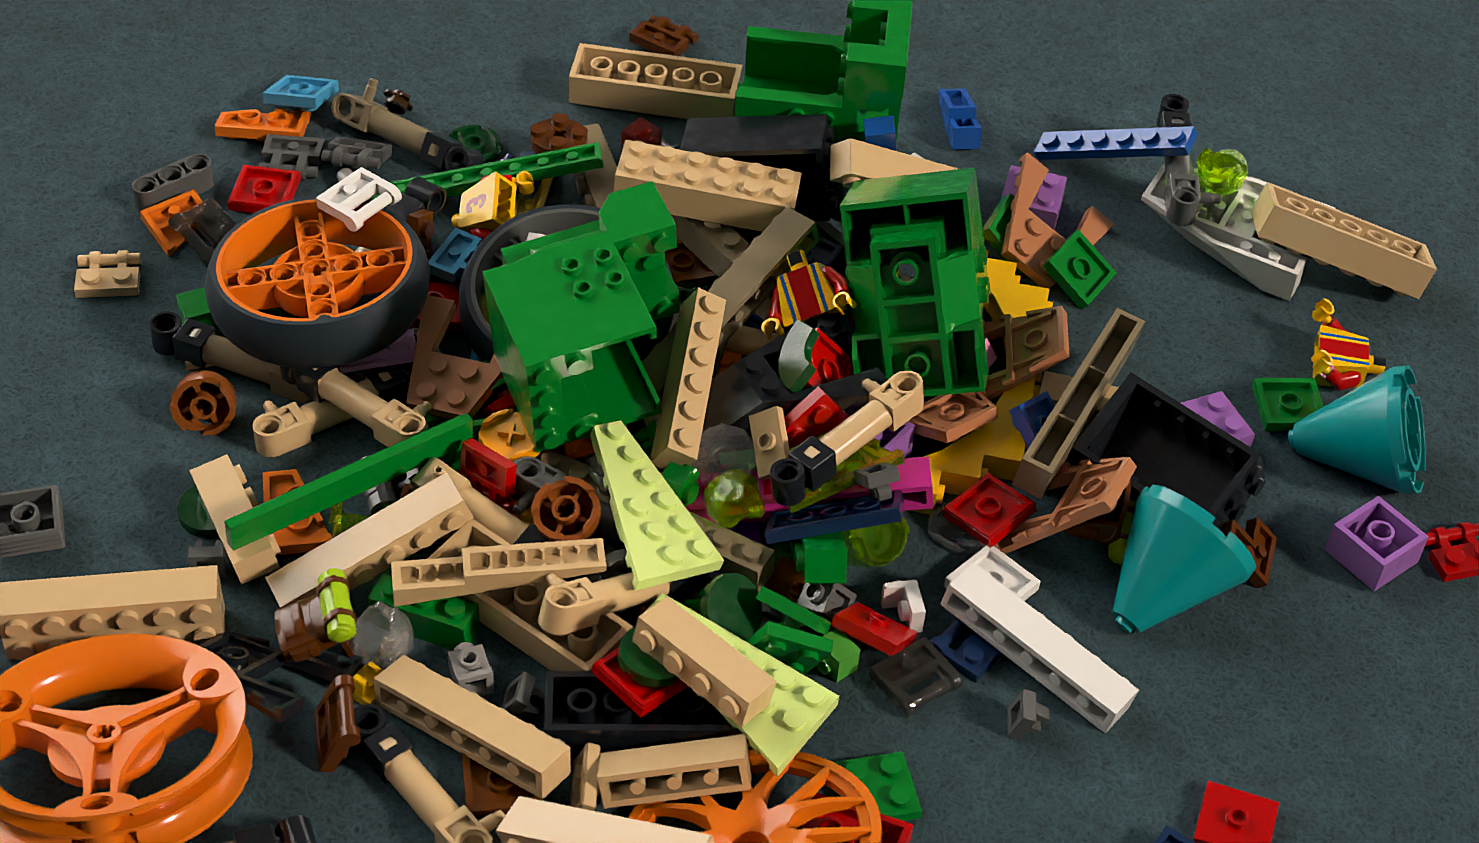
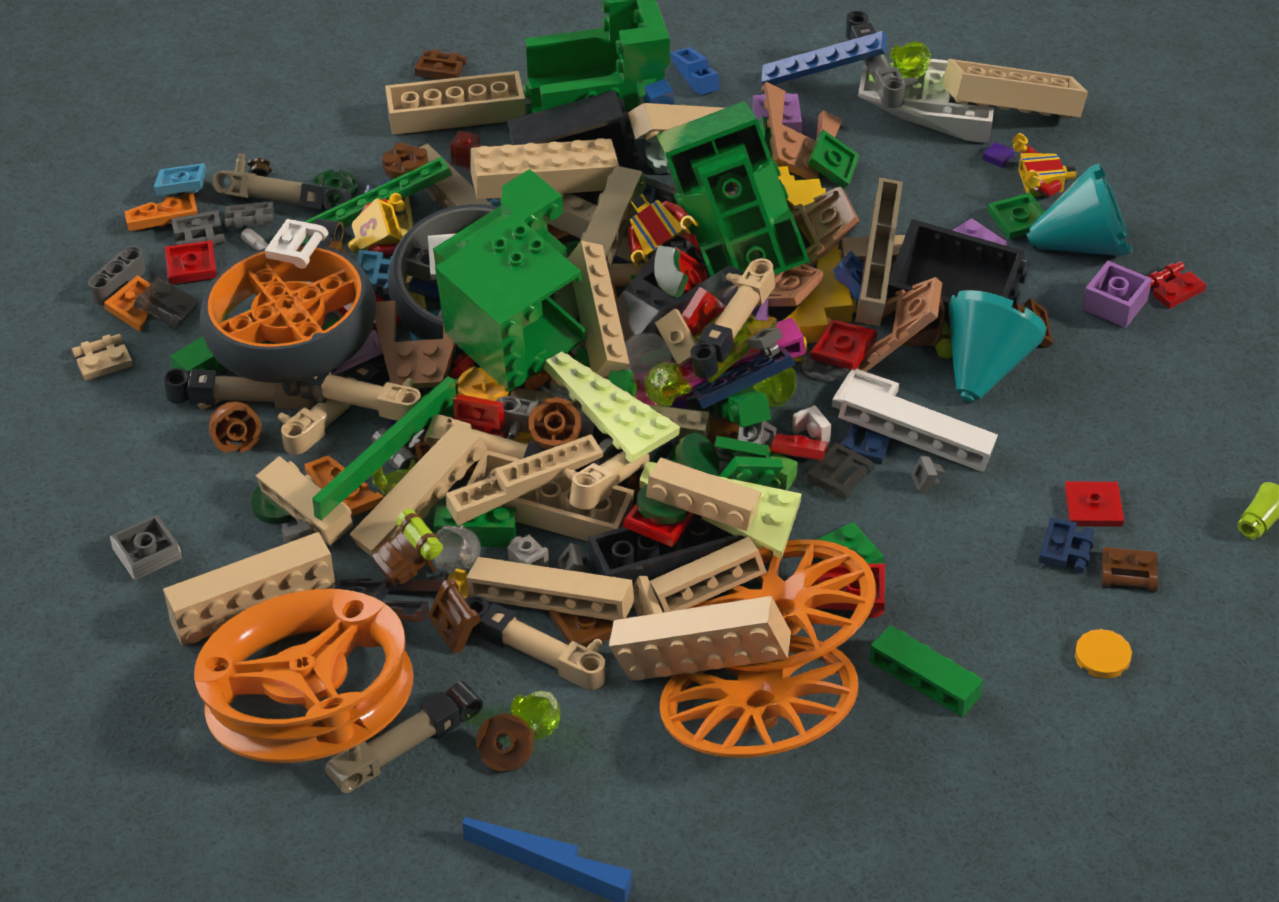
camera: 15 degrees left, 0 degrees up
(1294, 318) = (998, 154): none -> dark purple tile

